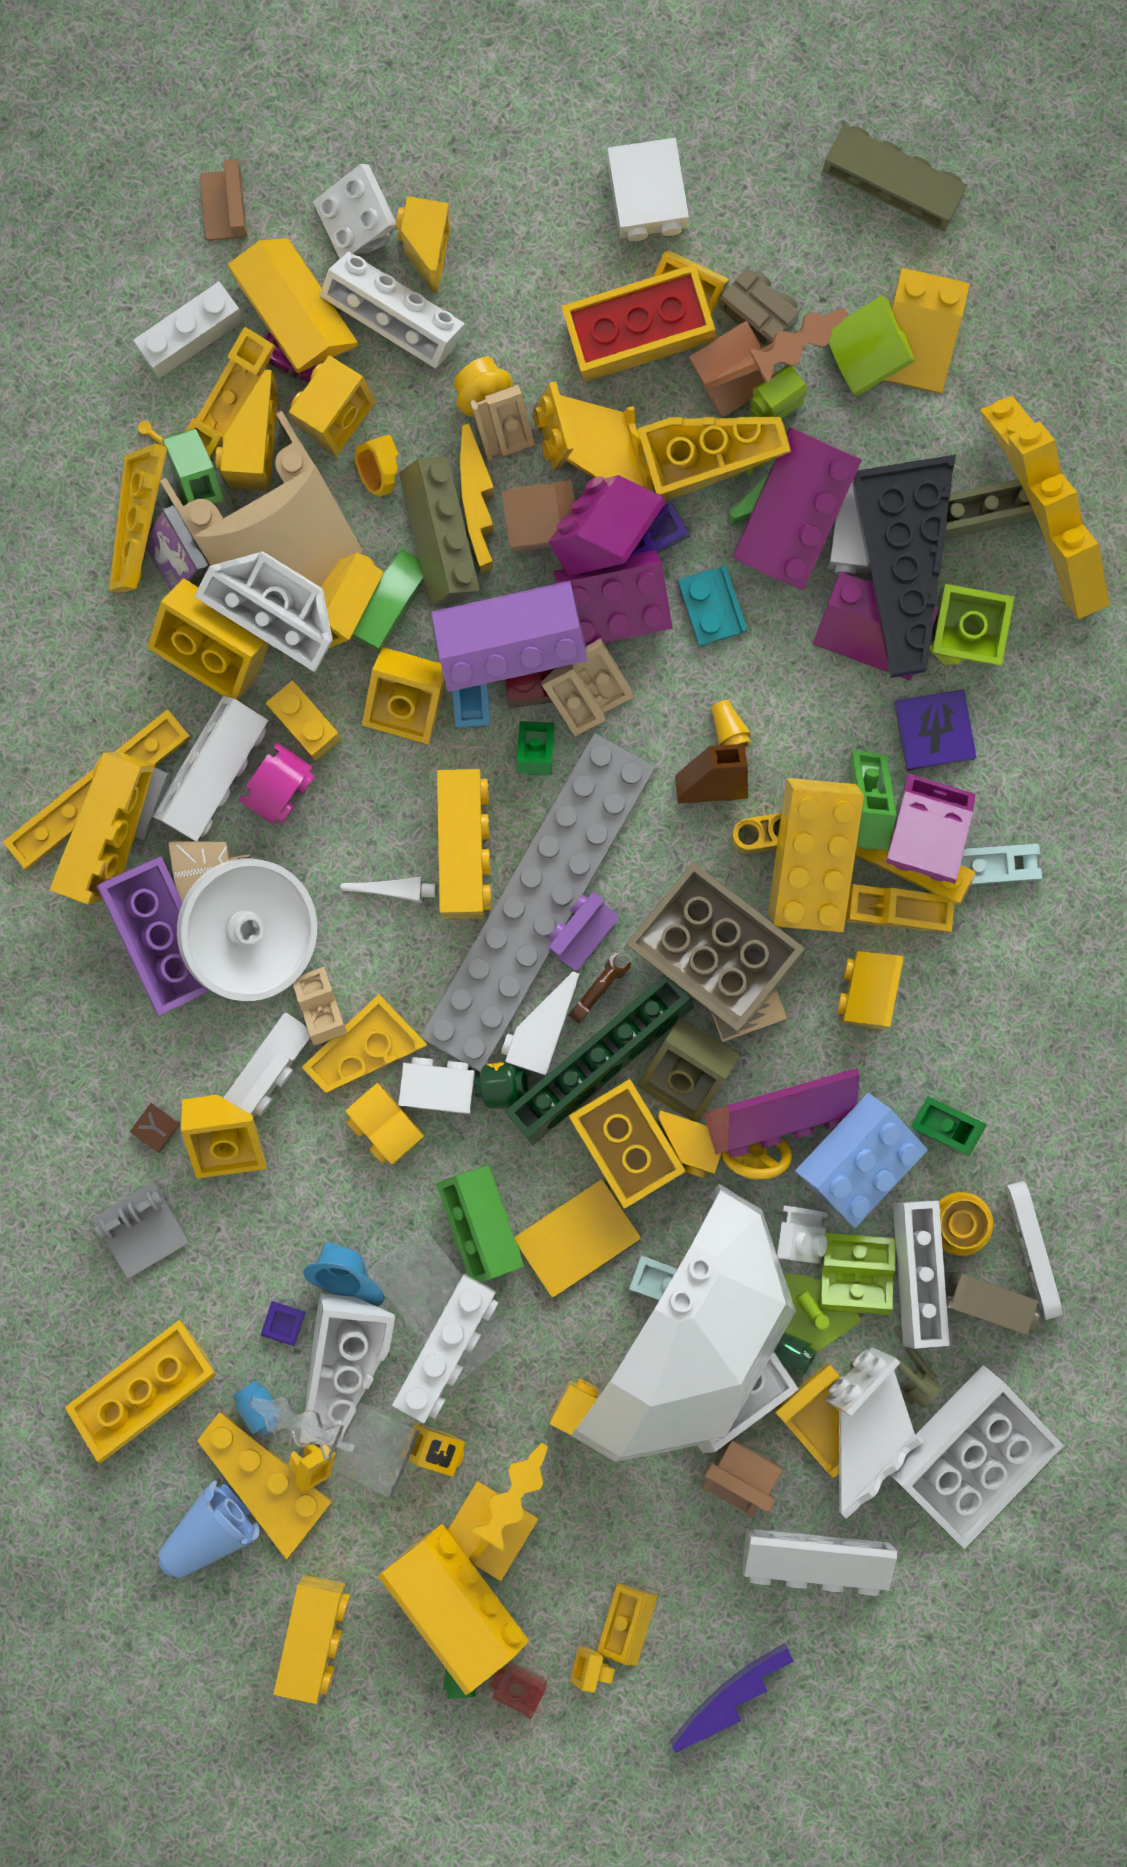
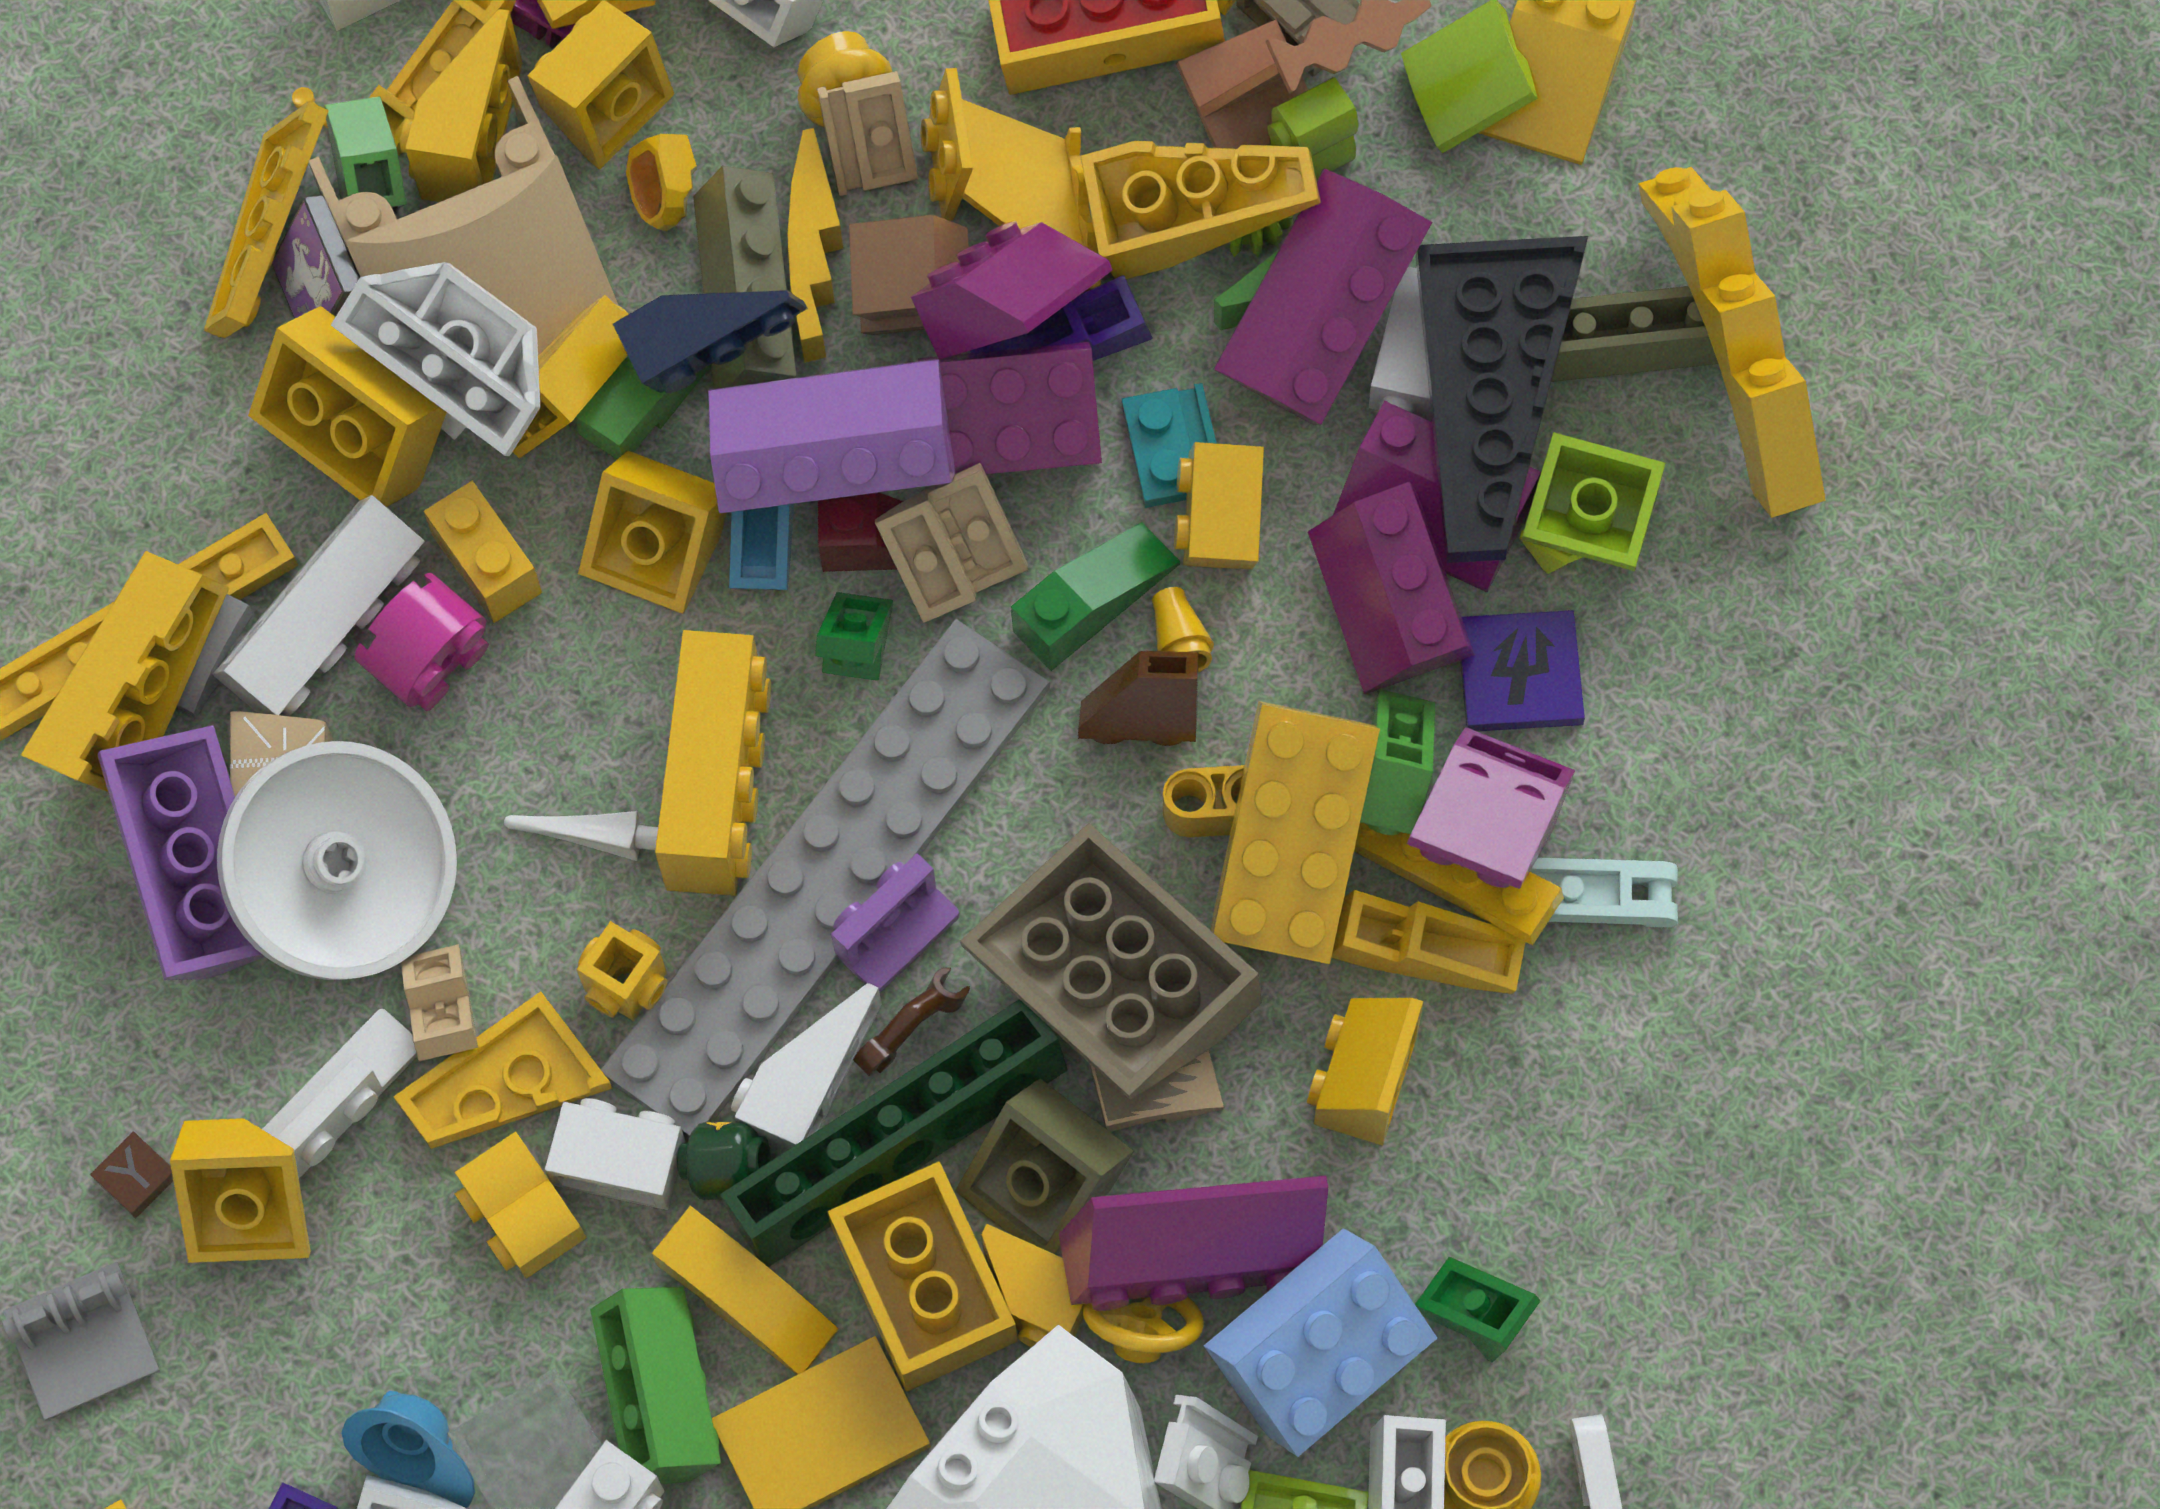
camera: 10 degrees right, 15 degrees down
(410, 576) = (688, 332): none -> dark blue slope
(416, 968) = (616, 954): none -> yellow brick
(524, 1162) = (744, 1291): none -> yellow slope
(675, 707) = (1089, 593): none -> green slope
(747, 647) = (1221, 505): none -> yellow brick
(854, 691) = (1390, 588): none -> magenta slope

